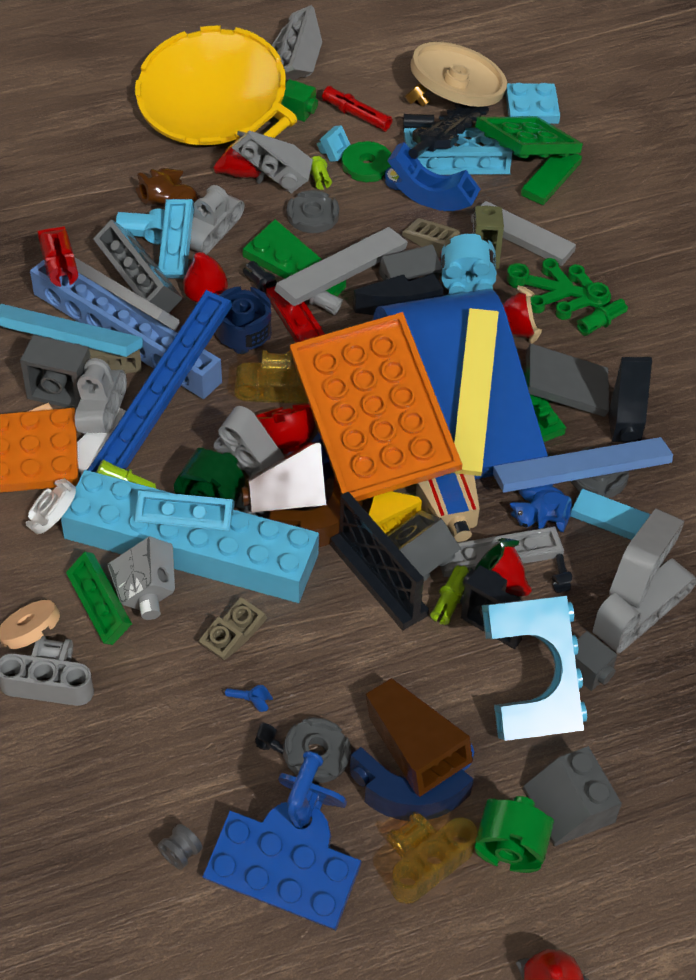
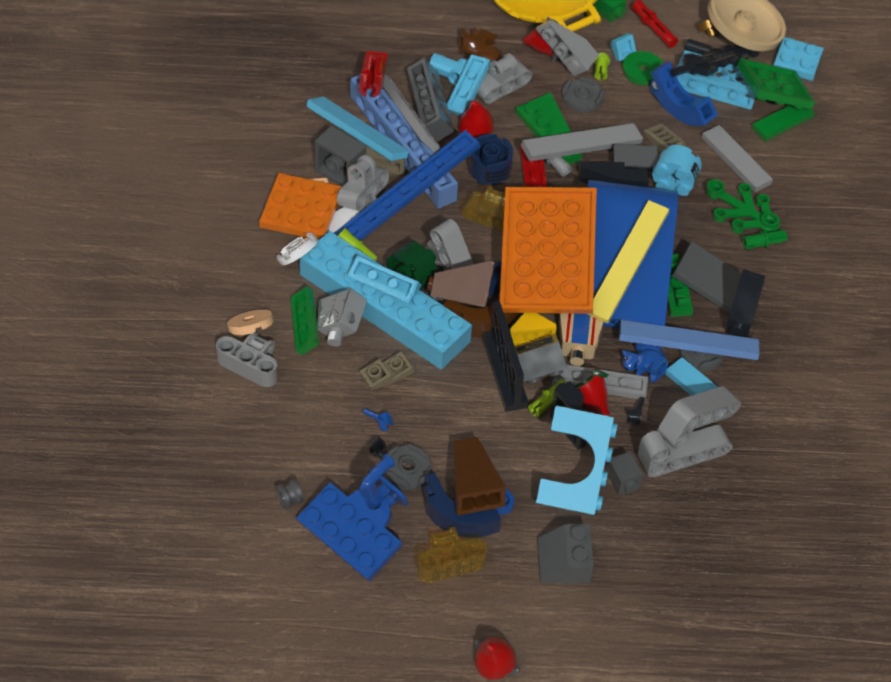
camera: 20 degrees right, 0 degrees up
(259, 276) = (518, 131): black pin -> none
(289, 426) = (484, 245): red cylinder -> none
(490, 226) = (707, 144): olive torso -> none
(514, 834) = (511, 561): green brick -> none
(520, 315) = (697, 219): red hat -> none

